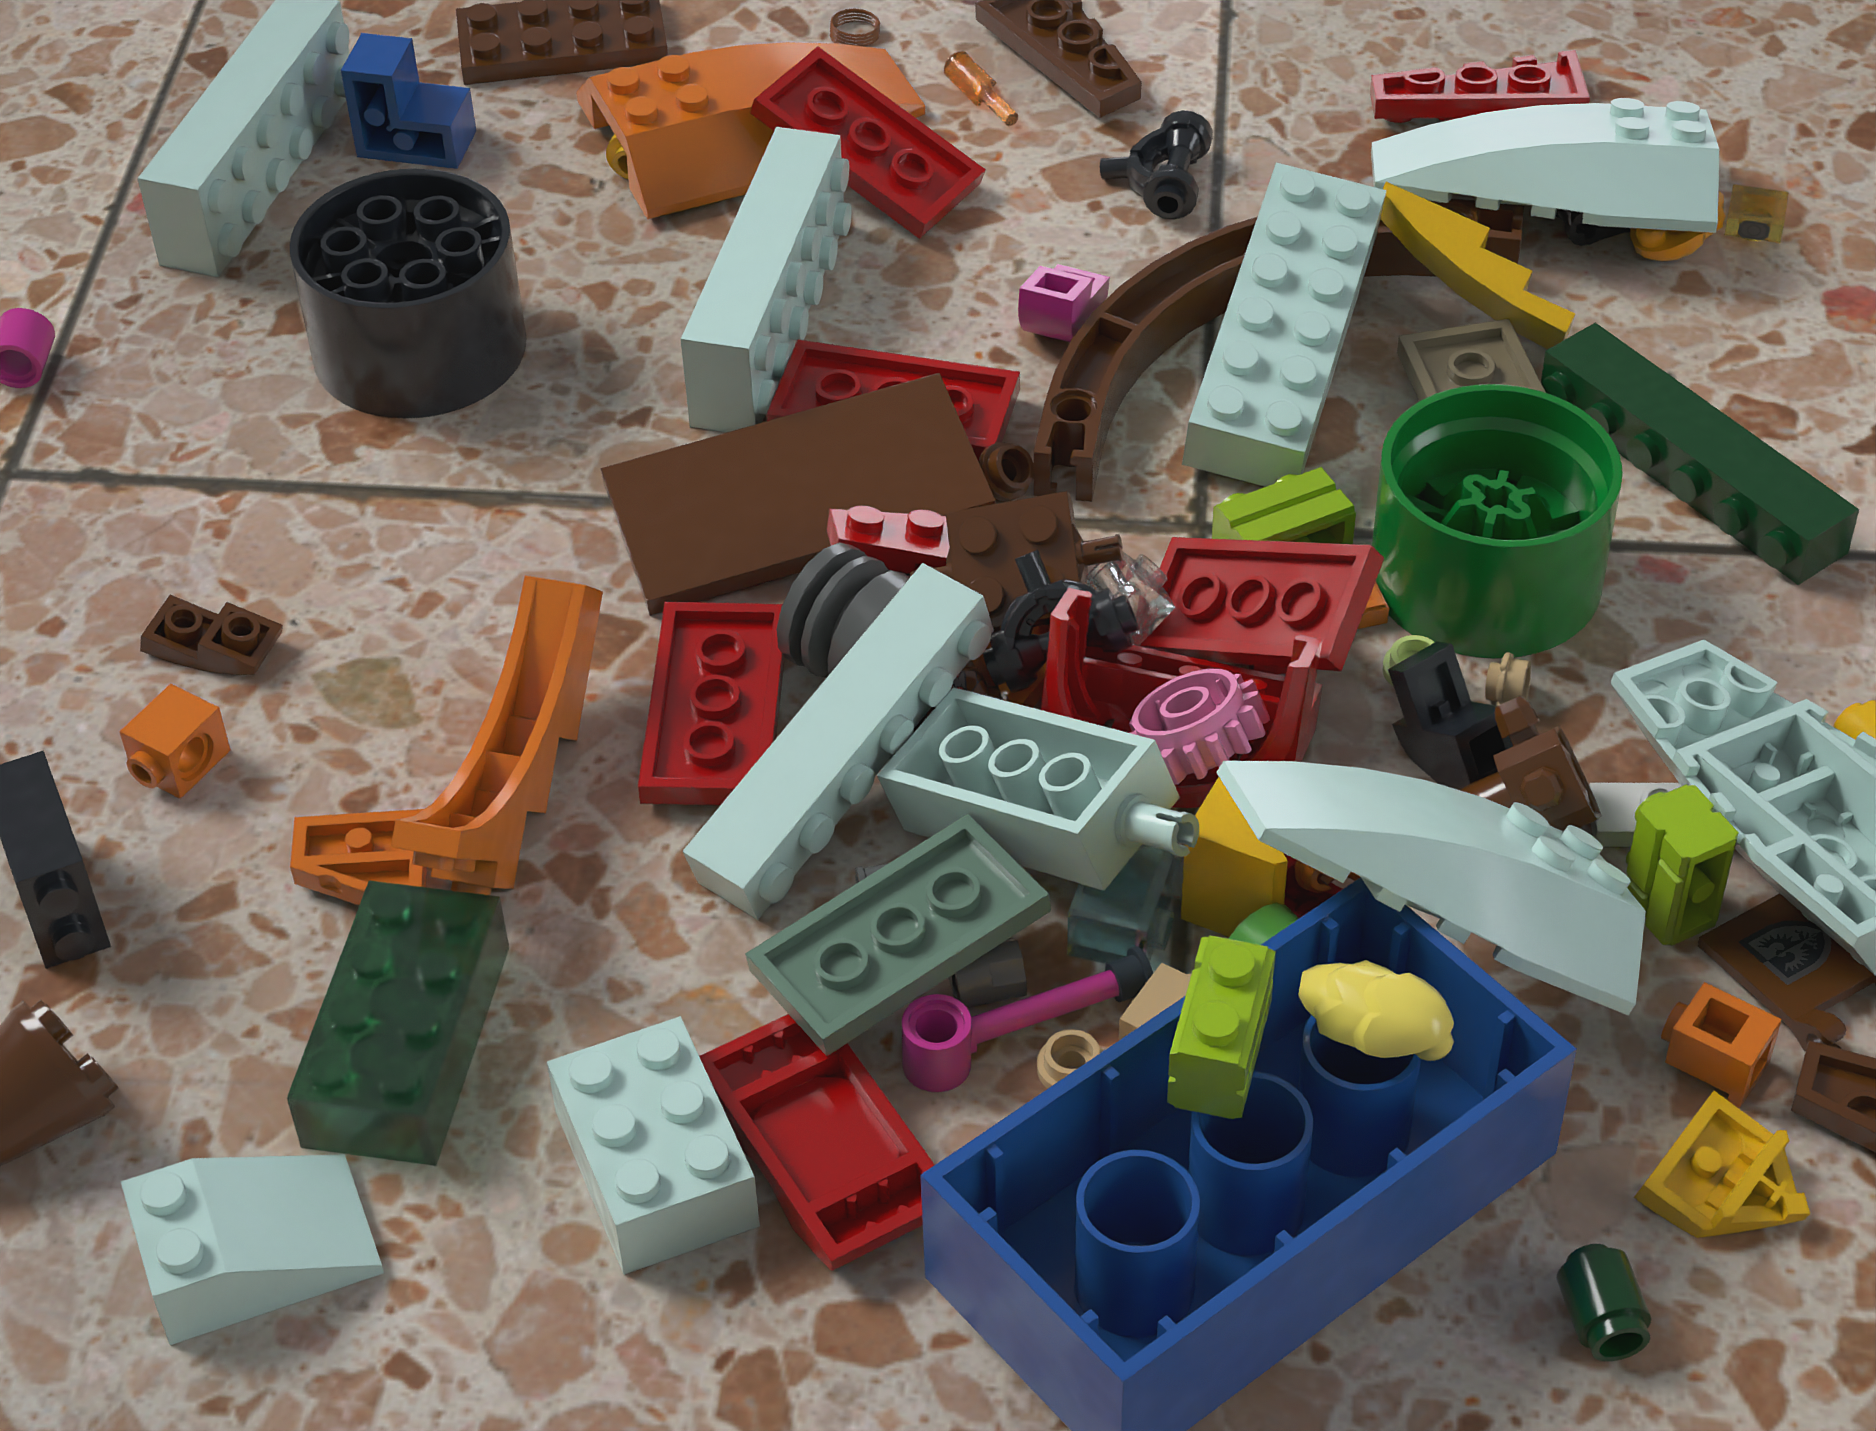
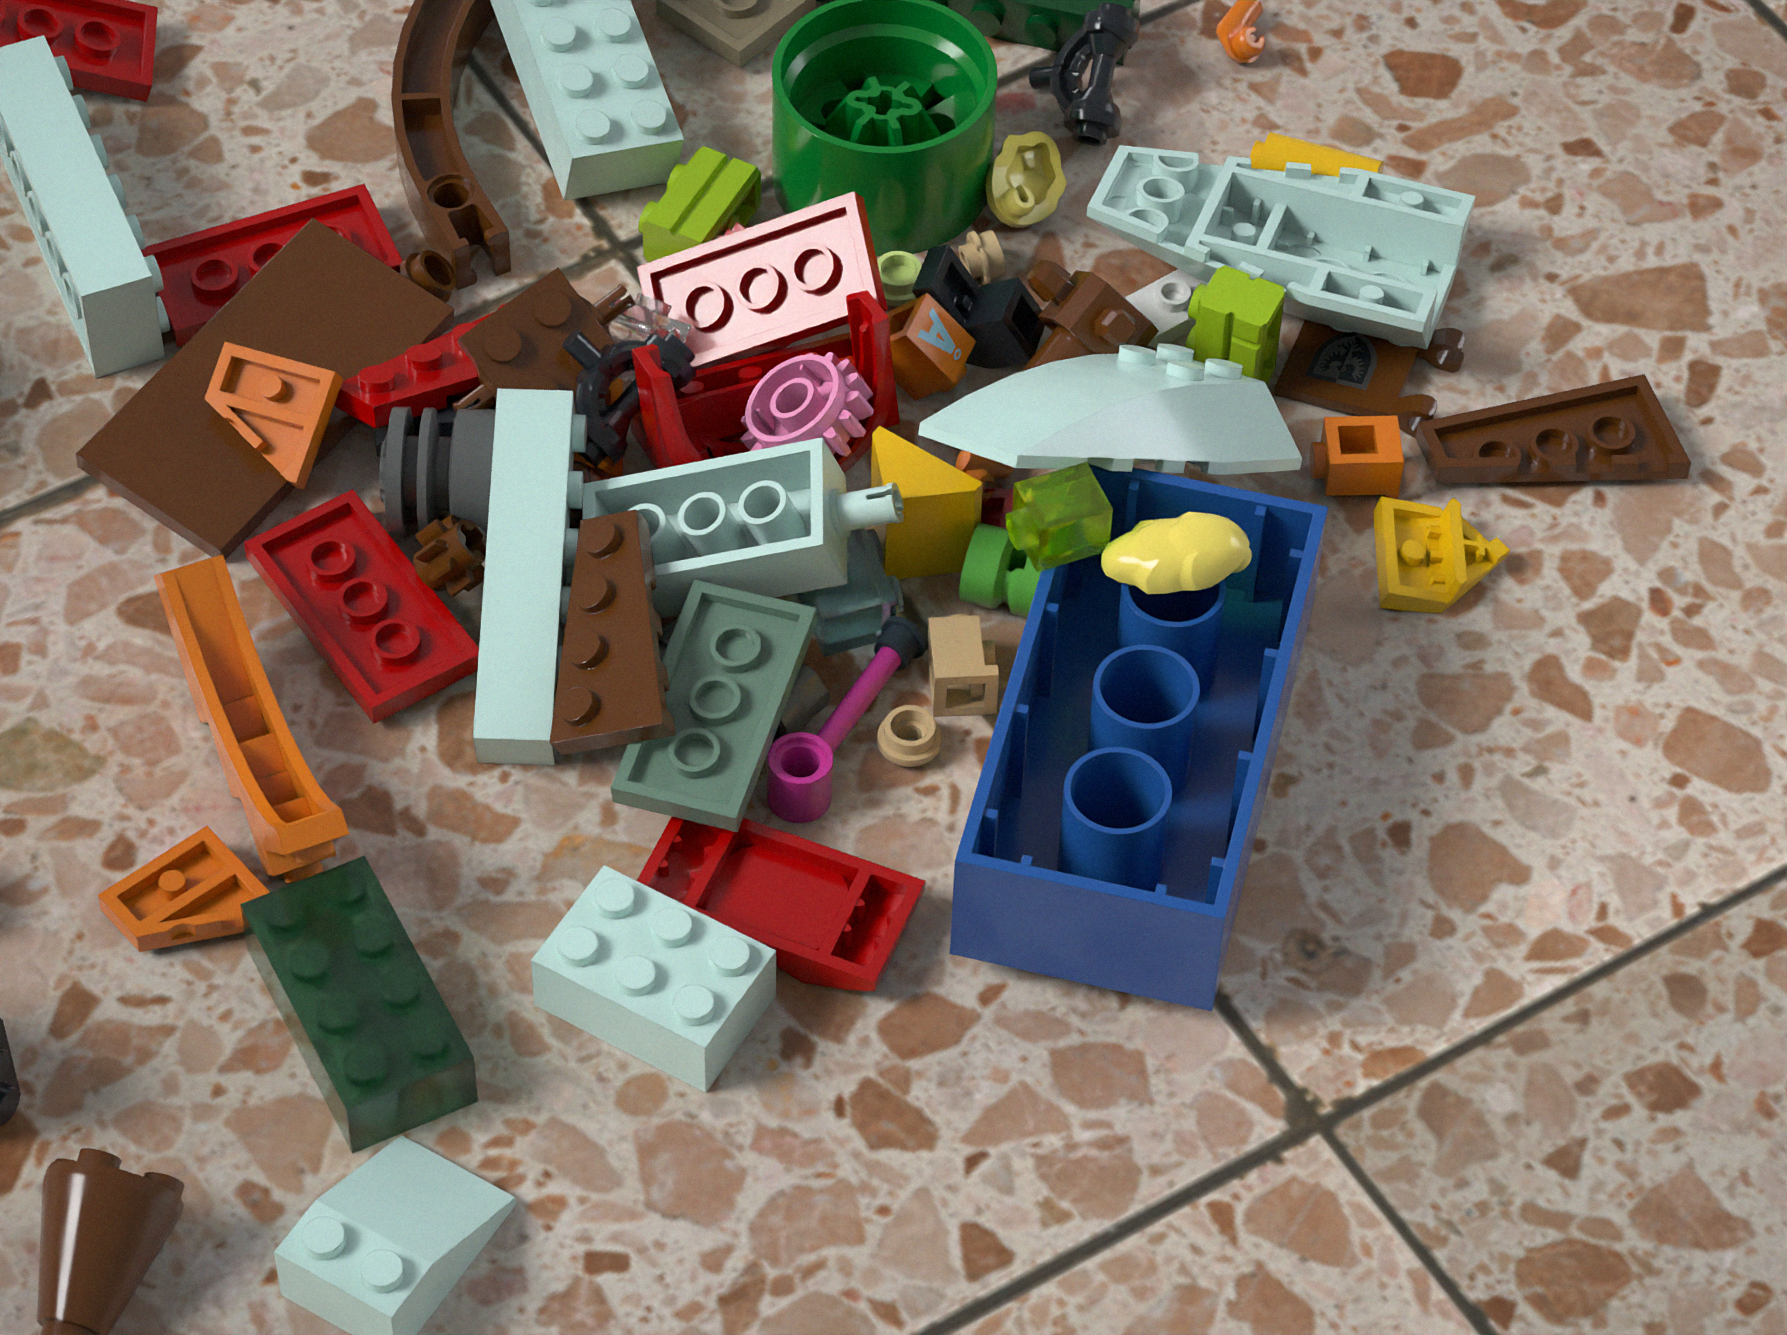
camera: 40 degrees left, 5 degrees up
(771, 505) = (275, 405): none -> orange wing
(795, 685) = (451, 555): none -> reddish brown gear
(835, 838) = (610, 657): none -> reddish brown wing
(1060, 300) = (345, 101): dark pink brick -> none
(1221, 1027) = (1091, 625): lime brick -> none
(1286, 909) = (1060, 517): none -> clear neon green brick
(1374, 727) = (927, 347): none -> orange brick
(1605, 634) = (1025, 179): none -> light yellow arm
(1605, 1302) = (1428, 691): dark green brick -> none
(1736, 567) = (1103, 38): none -> black piece

